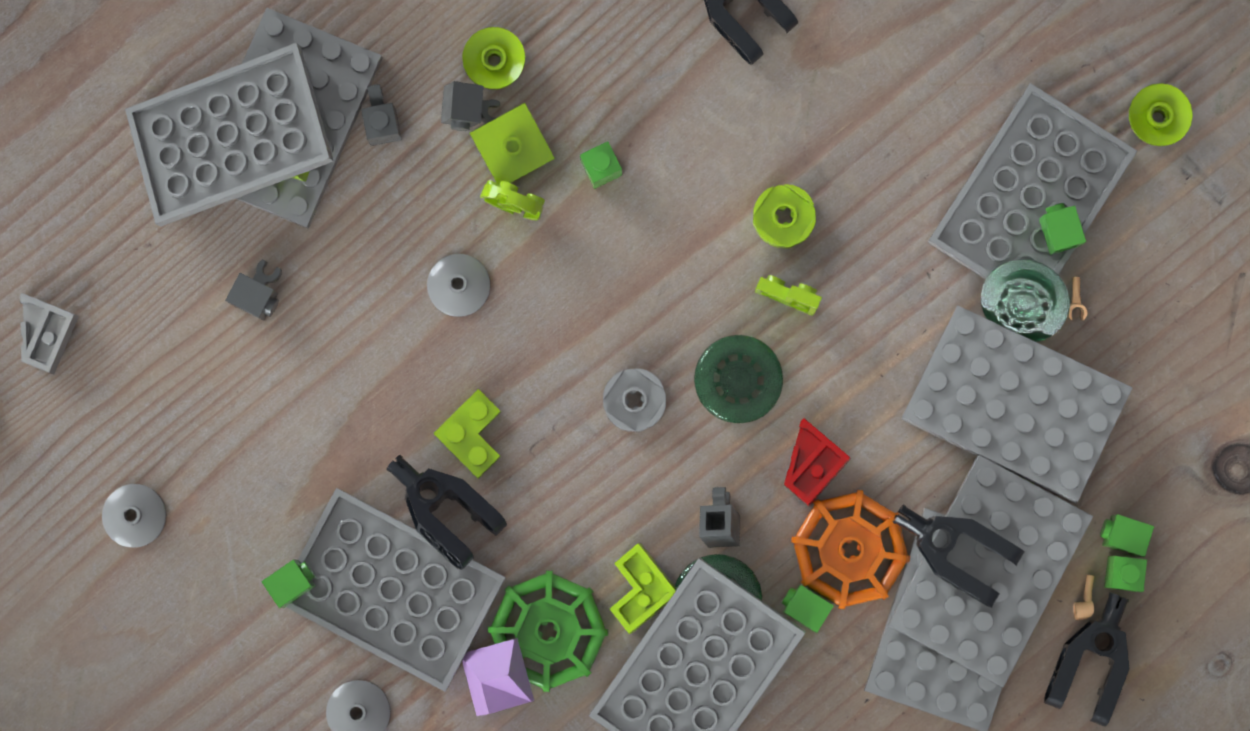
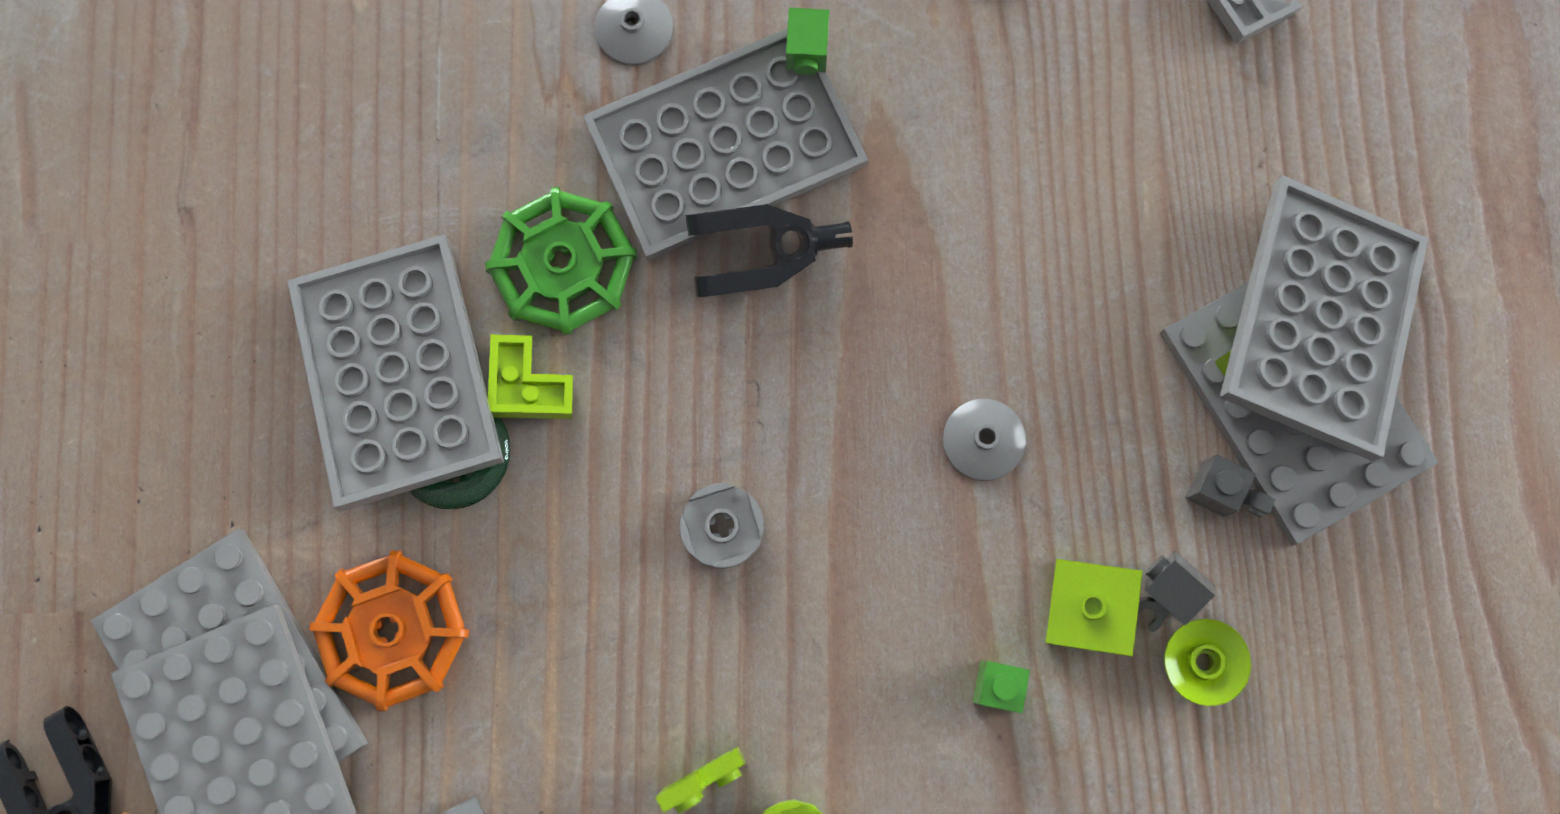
camera: 125 degrees right, 5 degrees down
(253, 294) = (1132, 223): dark grey brick -> none
(462, 432) = (827, 327): lime plate -> none
(497, 677) = (552, 174): lavender slope -> none
(505, 197) = (1038, 556): lime plate -> none
(720, 521) = (523, 512): dark grey brick -> none
(738, 379) = (657, 653): clear green wheel -> none
(806, 607) = (366, 534): bright green brick -> none
(813, 463) = (506, 661): red wing -> none
(936, 556) = (301, 755): black piece -> none

